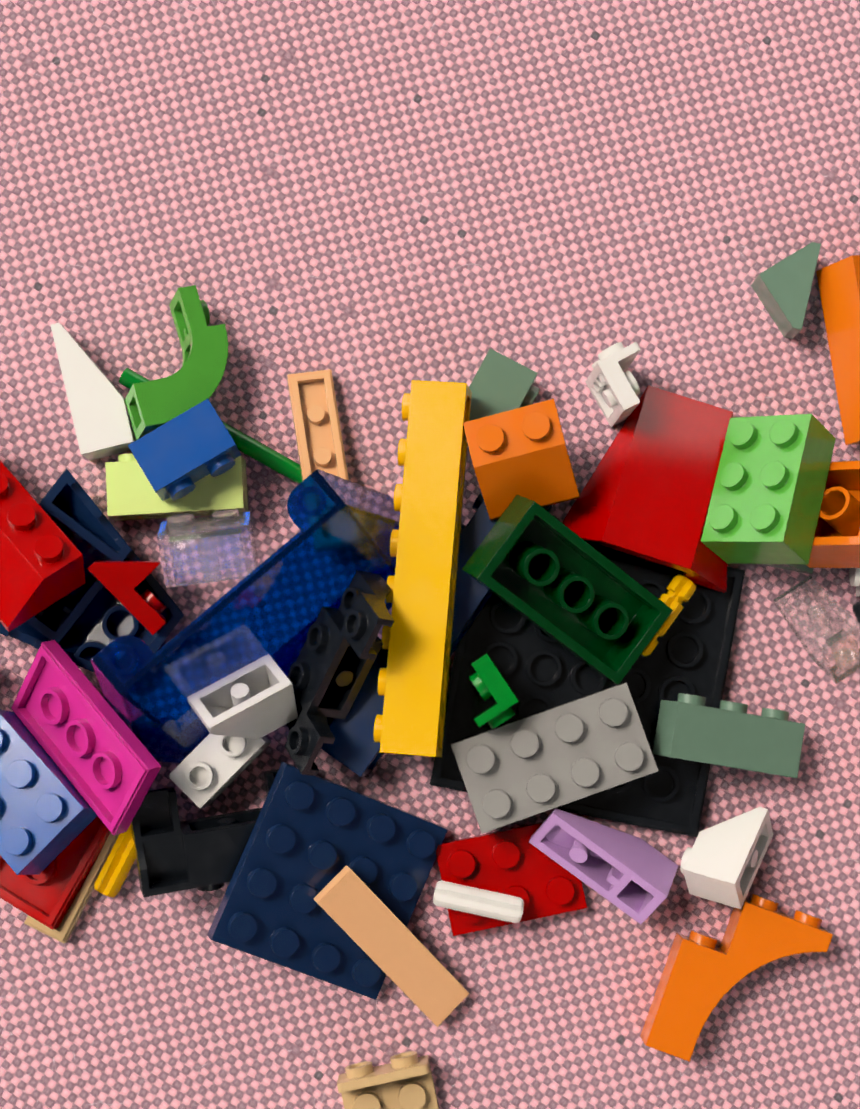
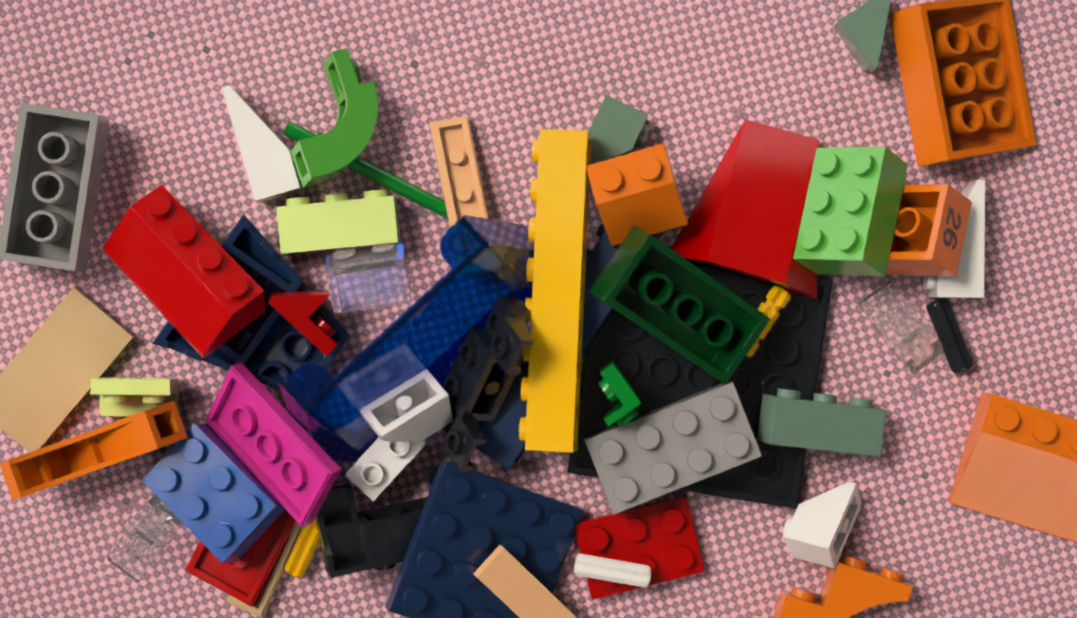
camera: 10 degrees left, 5 degrees up
(185, 451) = (346, 197): blue brick -> none
(608, 861) = (721, 532): lavender slope -> none
(610, 386) = (713, 126): white bracket -> none

